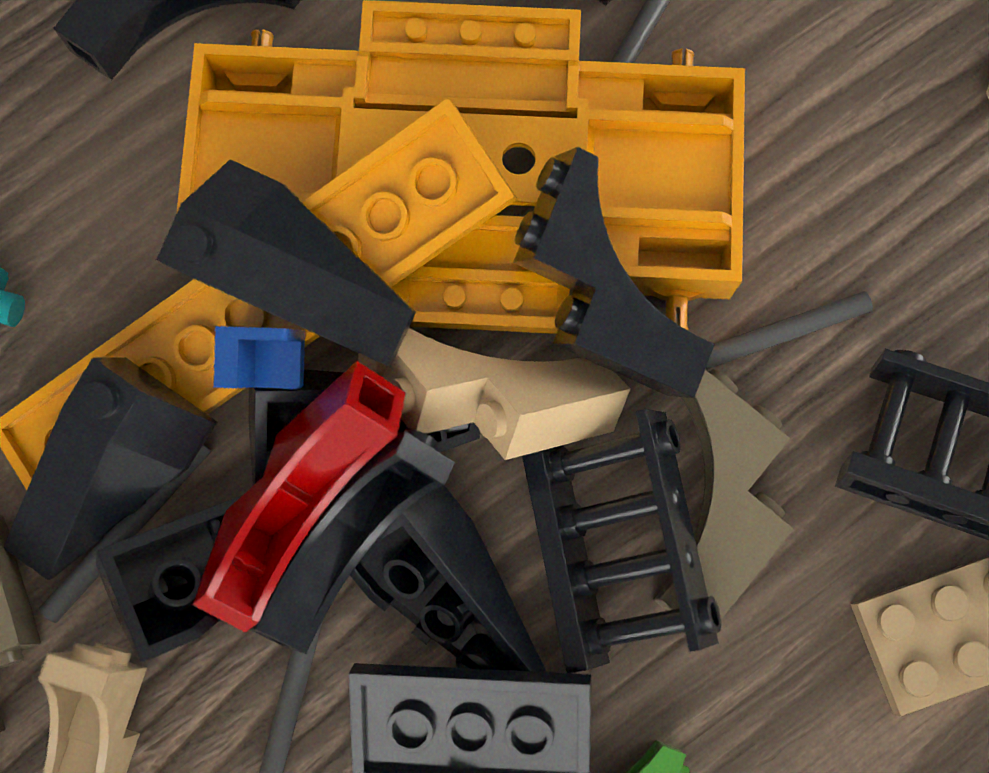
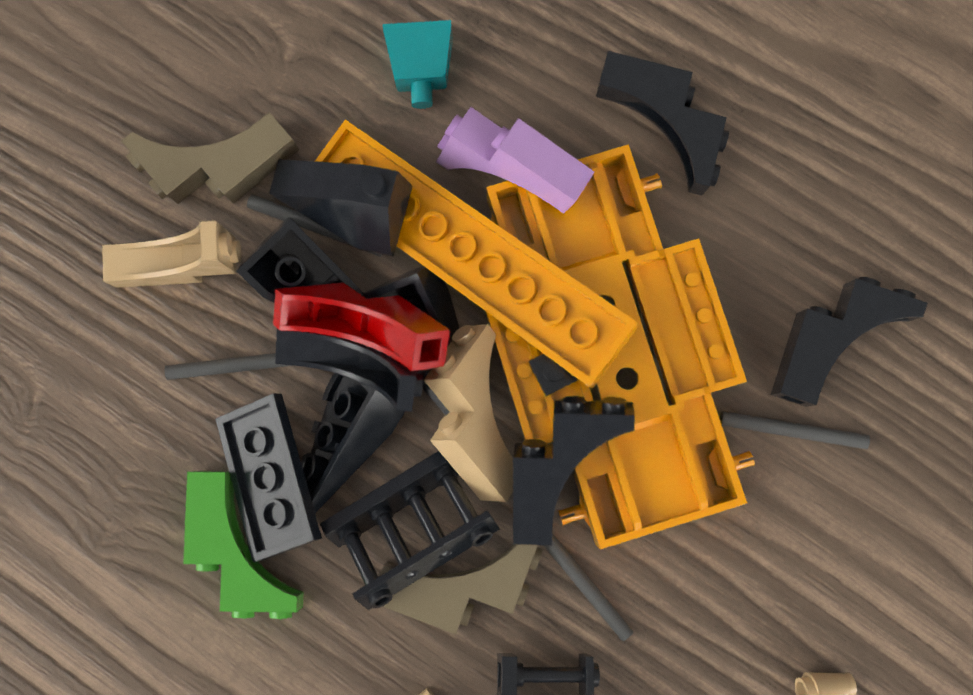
camera: 70 degrees right, 5 degrees up
(140, 195) = (514, 155): none -> lavender arch
(259, 357) = (437, 267): blue panel -> none
(274, 253) = (499, 250): black wedge -> none
(474, 257) = (550, 374): none -> black plate

